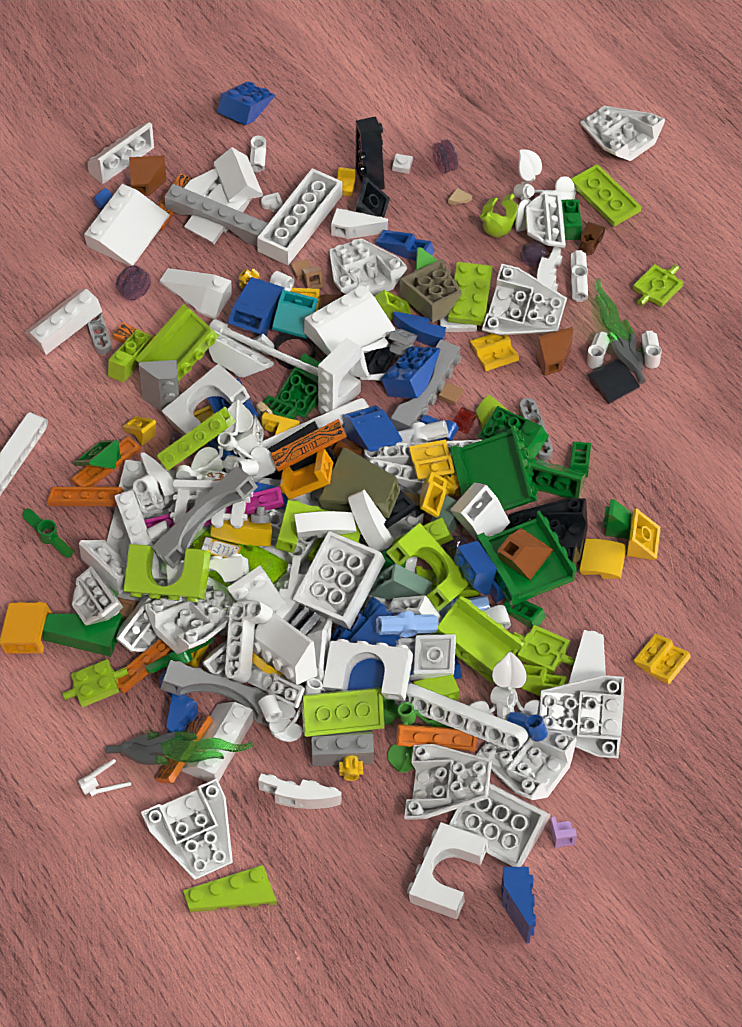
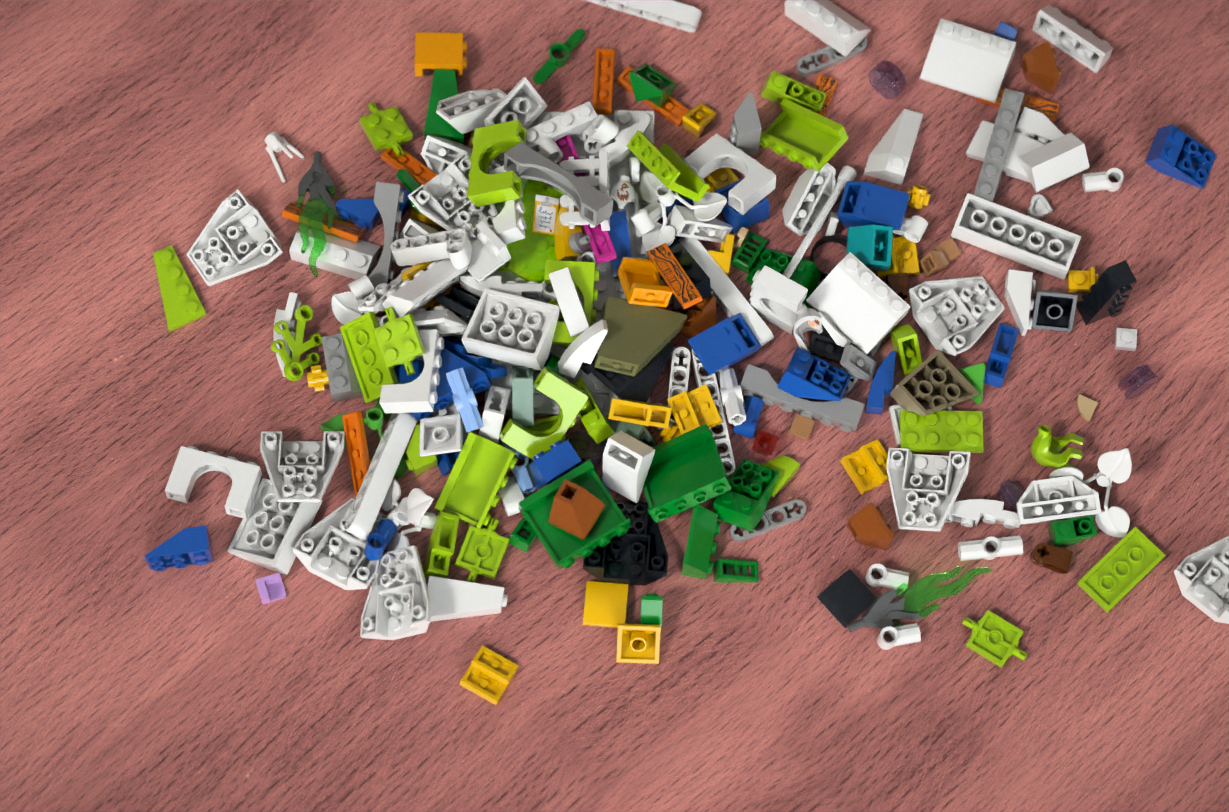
camera: 80 degrees right, 15 degrees up
(314, 777) = (295, 344): none -> lime plant
(339, 671) = (399, 341): none -> lime plate

